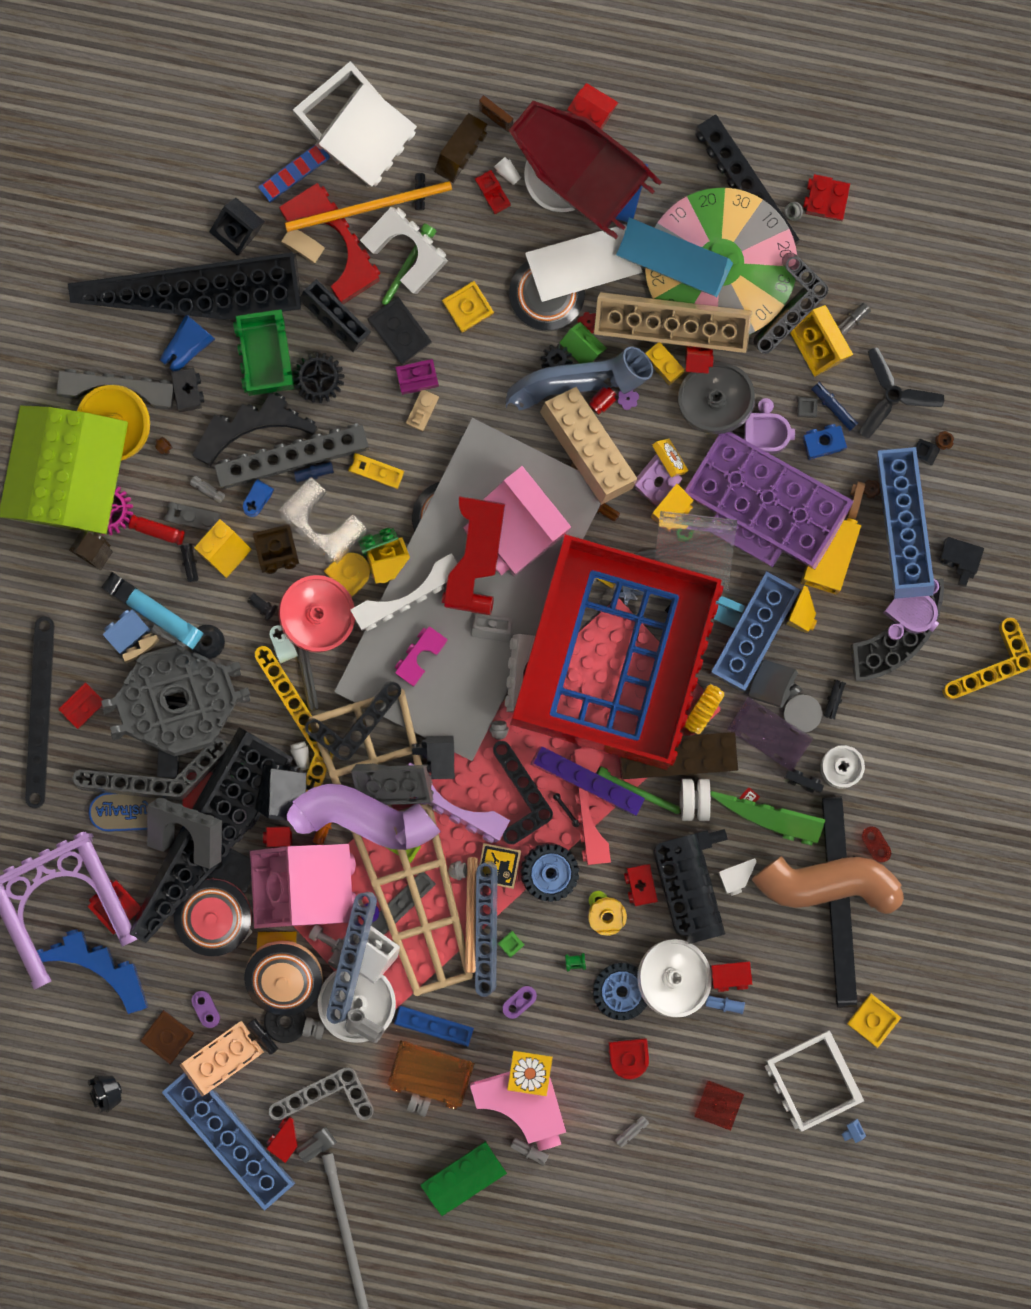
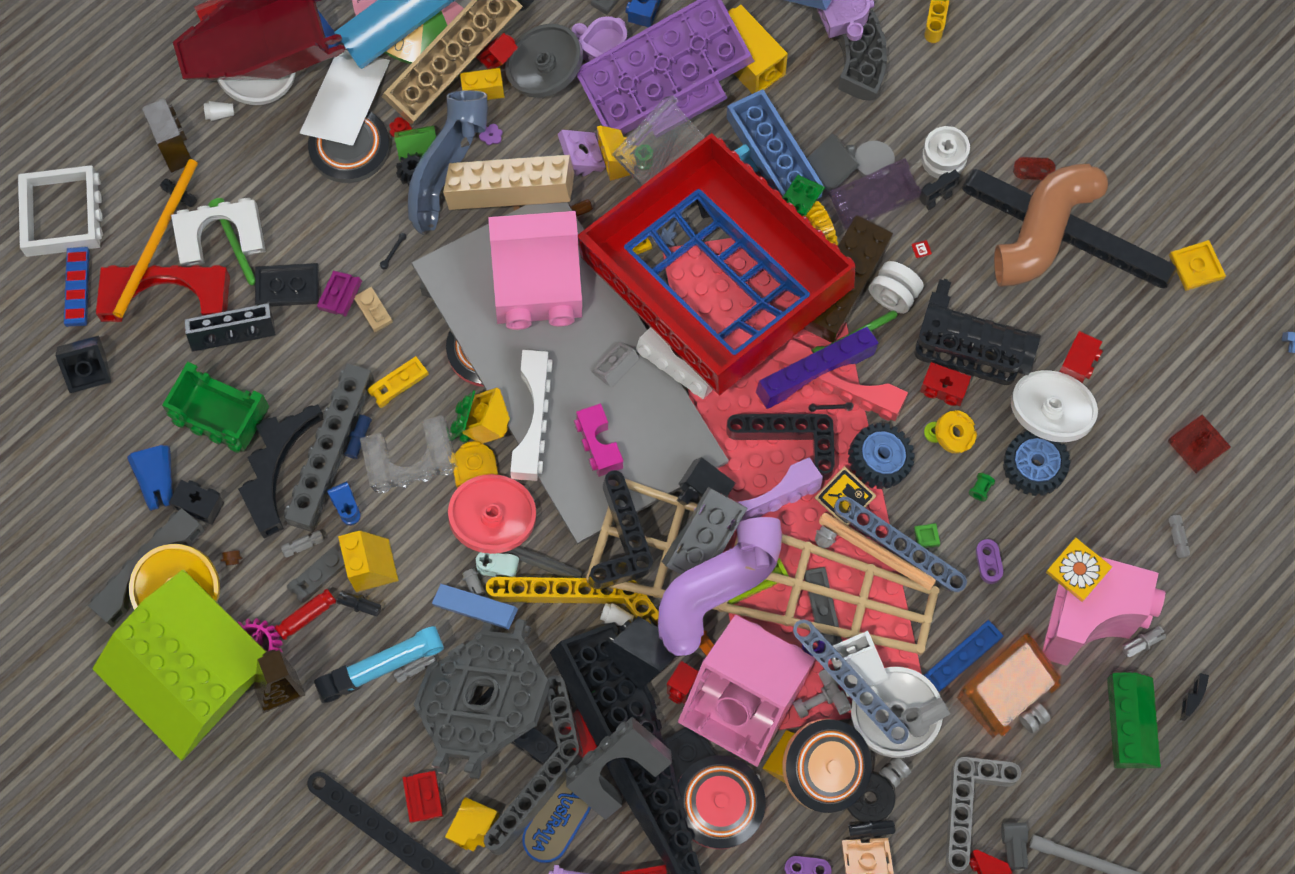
camera: 50 degrees left, 15 degrees down
(84, 753) = (471, 824): none -> yellow piece
(126, 631) = (381, 703): medium blue slope -> none
(146, 644) = (406, 695): tan slope -> none
(204, 290) = (115, 428): black wedge -> none
(217, 645) = (457, 637): black piece -> none
(239, 649) = (474, 606): none -> medium blue tile
(258, 635) = (473, 582): none -> light grey pin
(264, 607) = (449, 561): black pin -> none
(276, 549) = (404, 514): dark brown plate -> none
(303, 244) = (143, 317): tan slope -> none
(310, 377) = (281, 363): black gear -> none
(367, 135) = (92, 198): white panel -> none
(465, 392) = (384, 264): none -> black hinge
(468, 306) = (310, 215): yellow tile -> none
(479, 557) = (545, 323): red door -> none
(492, 192) = (221, 134): red slope -> none
(495, 113) = (161, 85): reddish brown tile -> none
(499, 729) = (715, 418): light grey plate -> none
(503, 1211) = (1192, 701): none -> black slope
(602, 400) = (476, 150): red brick -> none
(629, 1057) = (1104, 496): red tile -> none
(670, 457) = (557, 126): yellow tile -> none
(716, 681) = (803, 194): none -> green hinge
(725, 1004) = (1105, 380): medium blue axle -> none
(736, 877) = (990, 299): white slope -> none
(781, 821) = (968, 226): bright green wedge -> none
(803, 612) = (785, 101): yellow slope -> none
(834, 699) = (879, 127): black pin -> none
(844, 1071) = (1232, 315): white window -> none

